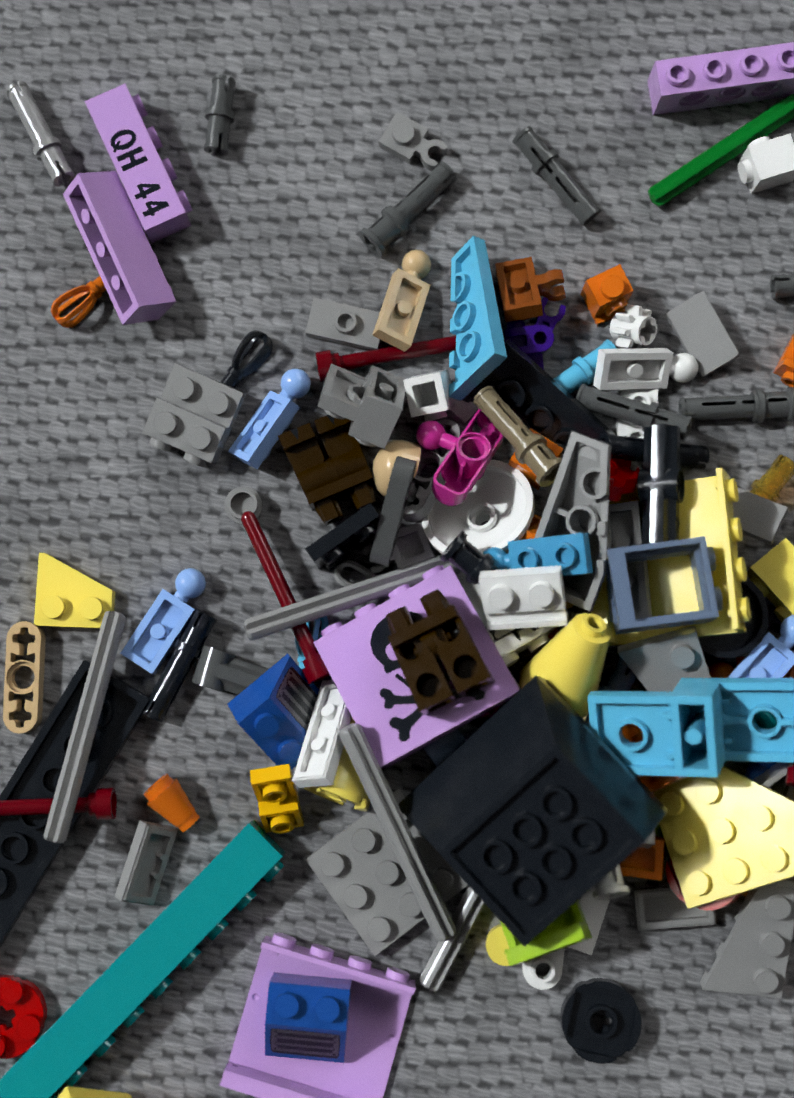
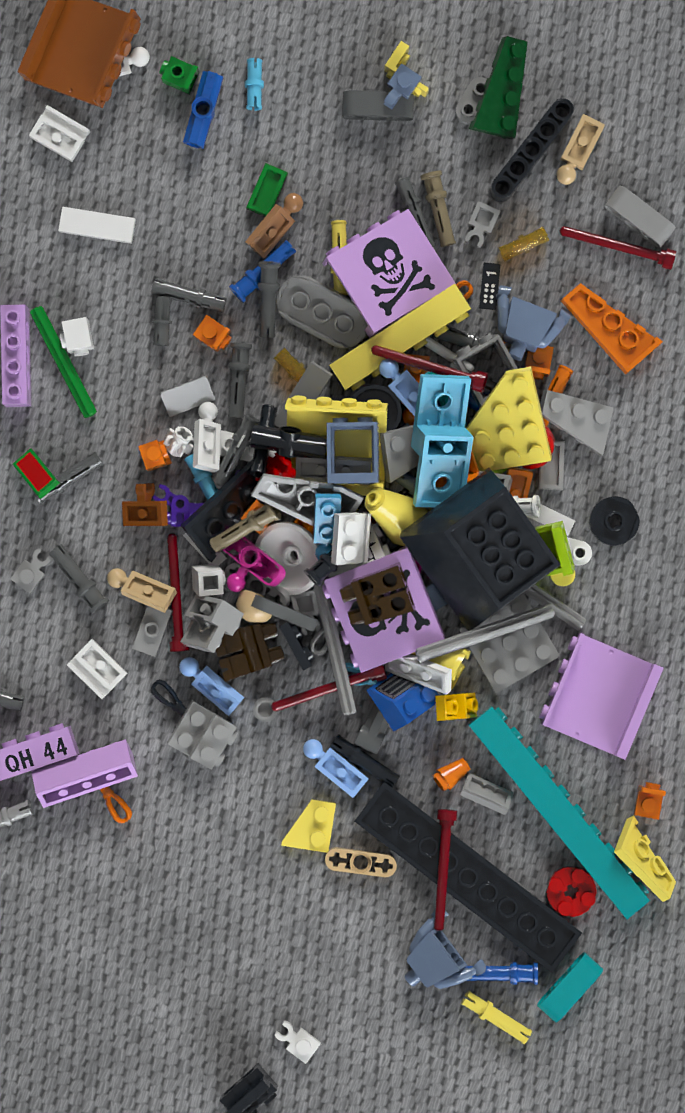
camera: 85 degrees left, 5 degrees up
(84, 727) = (396, 822): light grey axle -> none
(277, 250) = (97, 668): none -> white plate
(307, 1017) = (592, 702): blue slope -> none
(475, 319) = (163, 545): medium azure wing -> none
(556, 127) = (36, 473): none -> tile

